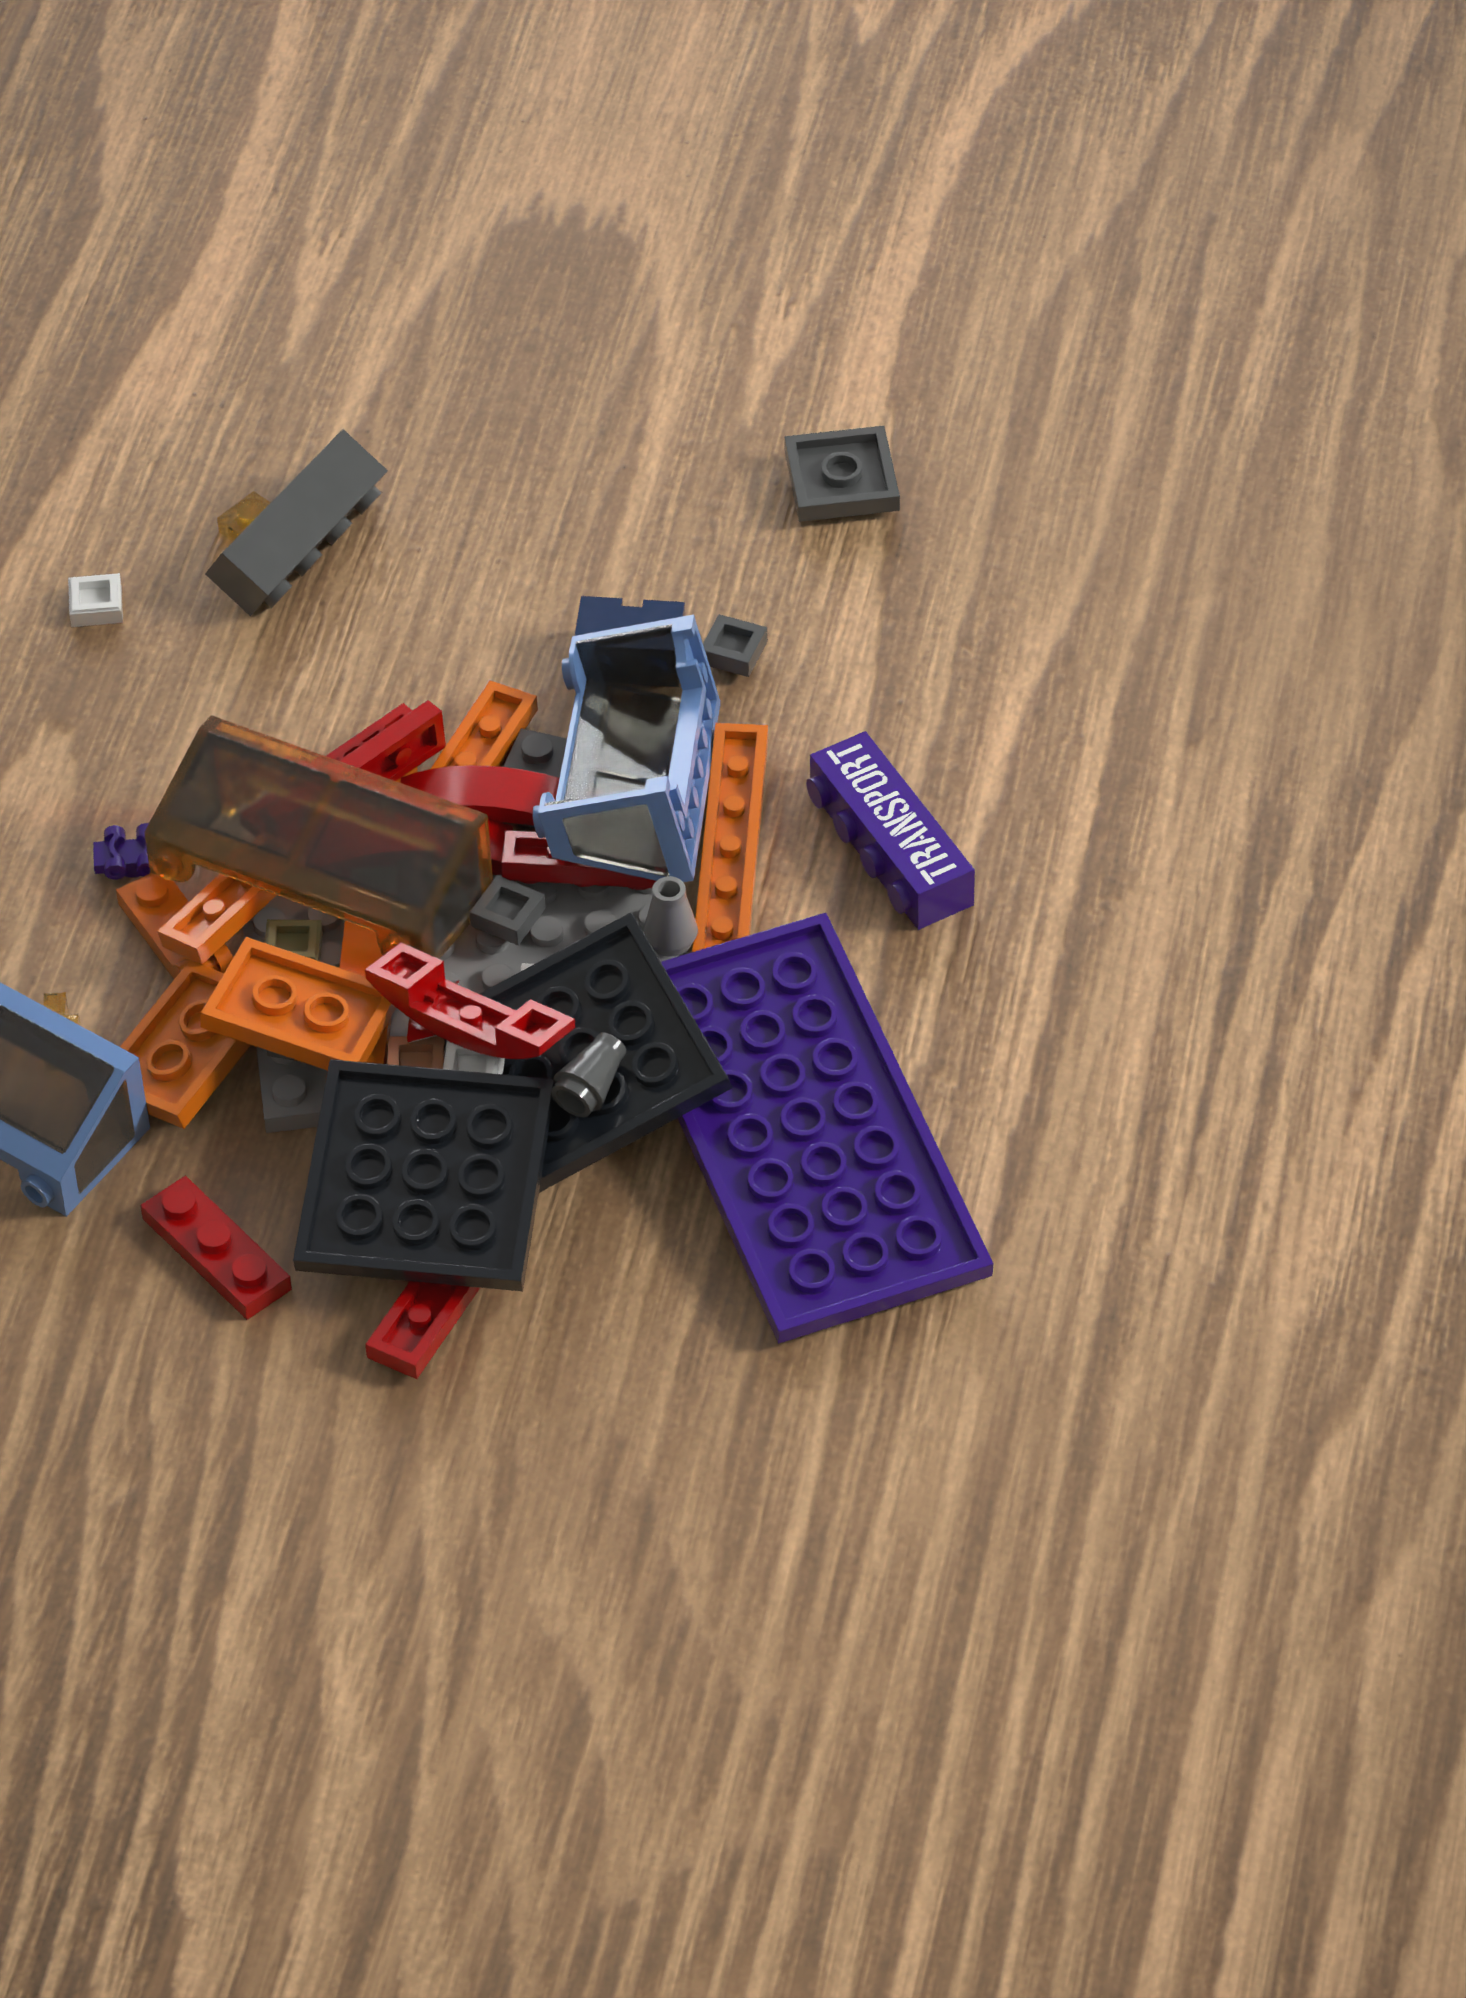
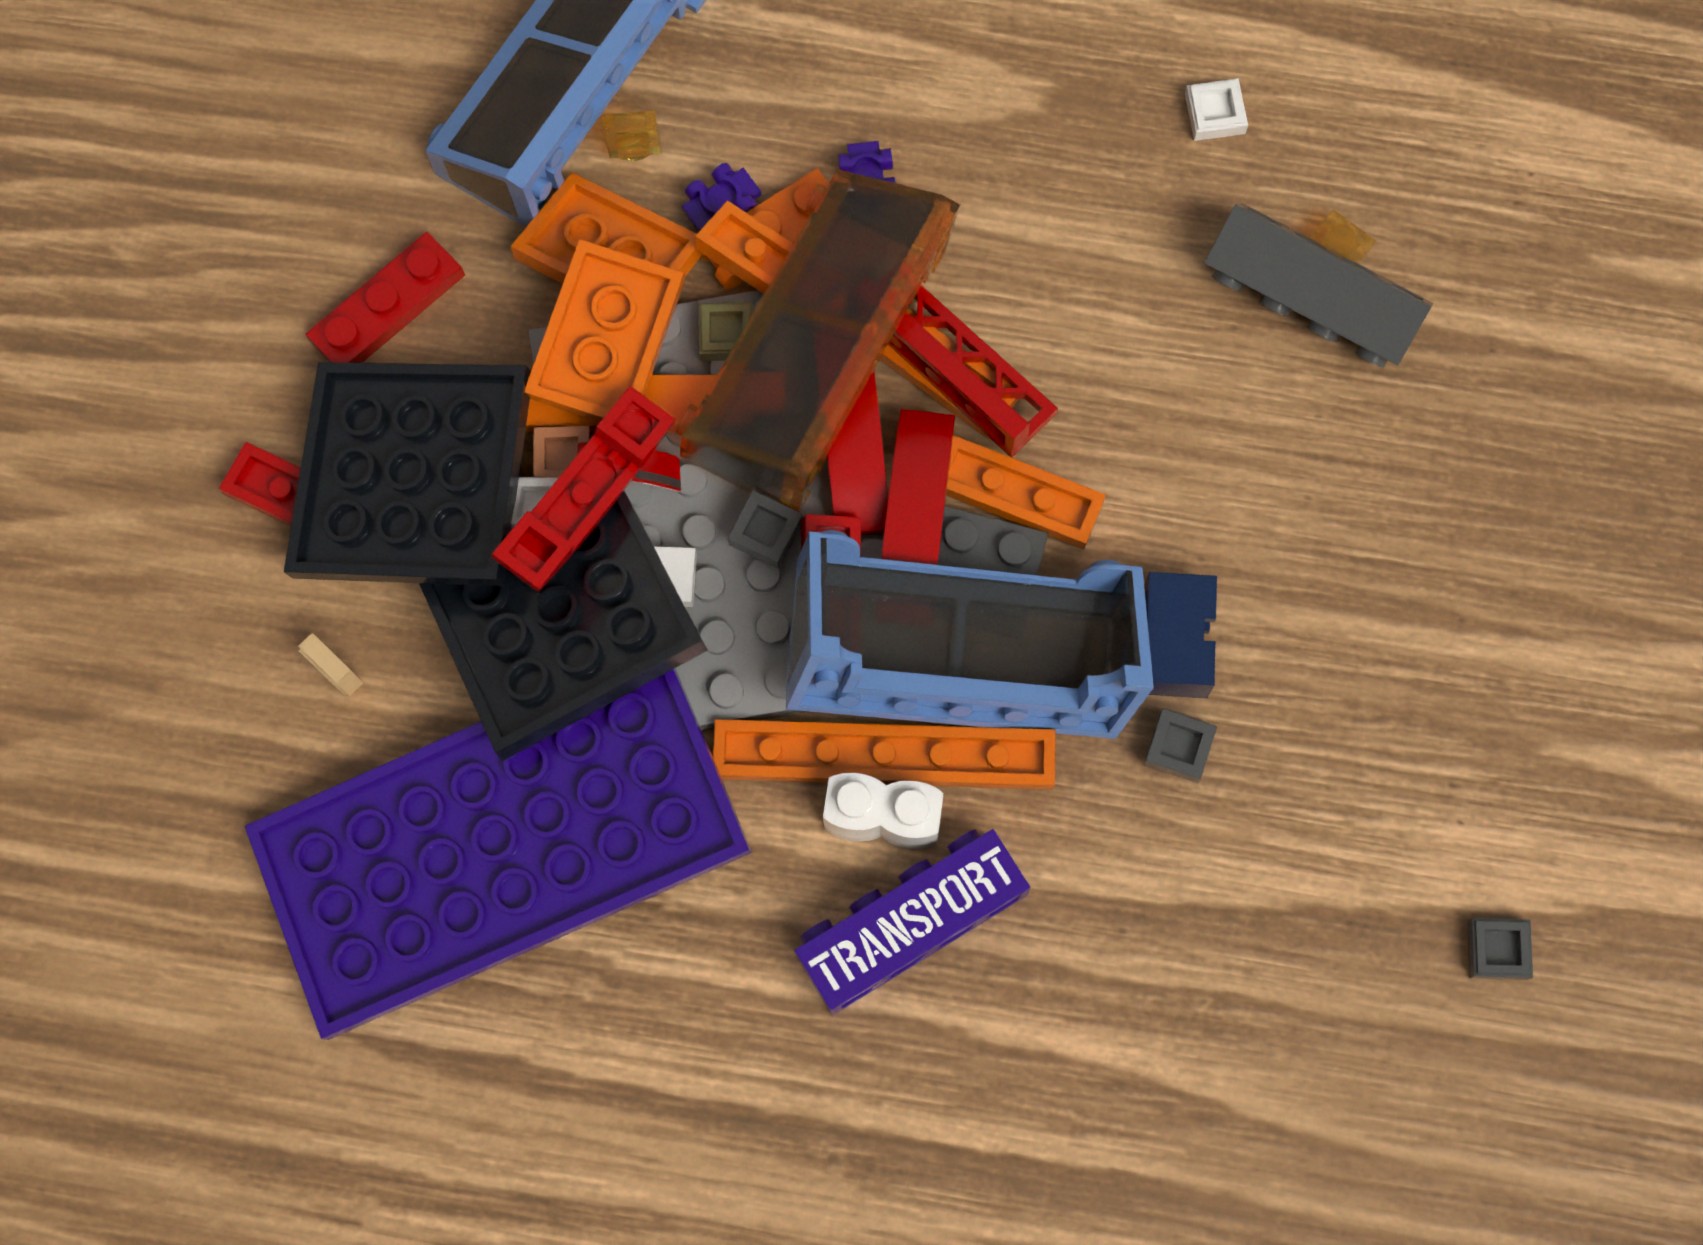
camera: 90 degrees right, 25 degrees up
(139, 970) = (731, 186): none -> dark purple piece
(587, 1078) = (498, 613): dark grey cone -> none
(614, 1269) = (329, 665): none -> tan tile
(670, 919) = (749, 704): light grey cone -> none
(786, 844) = (867, 809): none -> white brick
(841, 473) = (1456, 855): dark grey plate -> none
(923, 457) = (1500, 948): none -> dark grey tile

